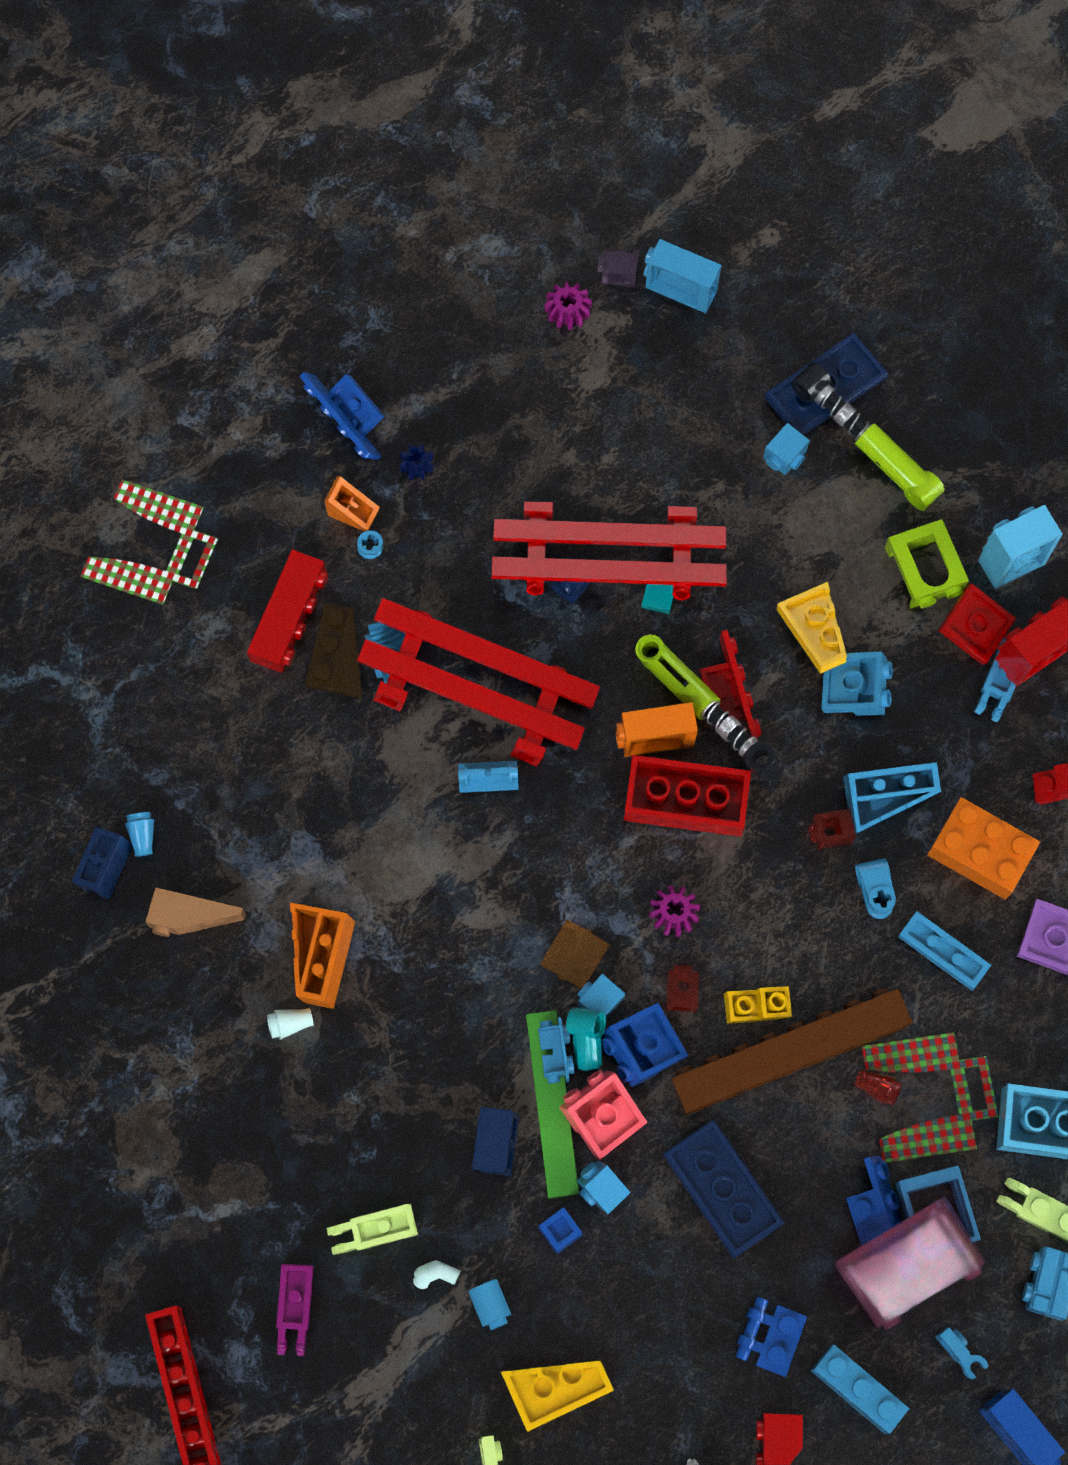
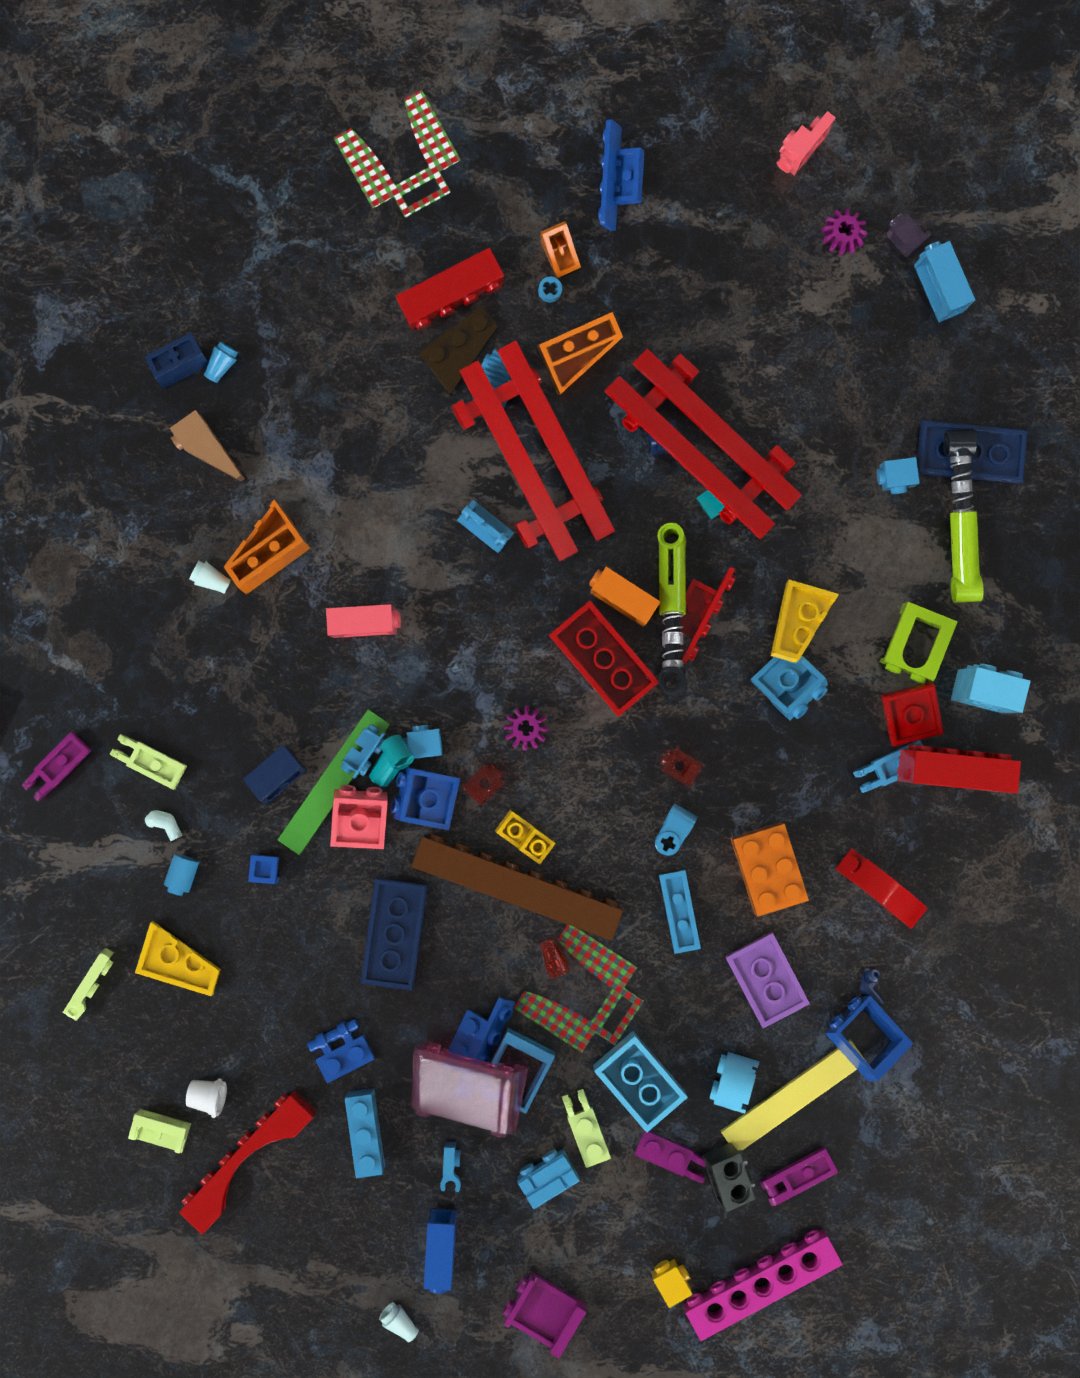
camera: 45 degrees right, 15 degrees up
(421, 456) = (630, 249): clear blue gear -> none
(437, 572) = (577, 350): none -> orange wedge
(456, 939) = (362, 621): none -> coral window
(473, 267) = (801, 144): none -> coral plate
(574, 954) = (436, 697): clear orange piece -> none
(601, 1186) = (315, 865): dark azure brick -> none
(885, 792) = (740, 776): dark azure wedge -> none

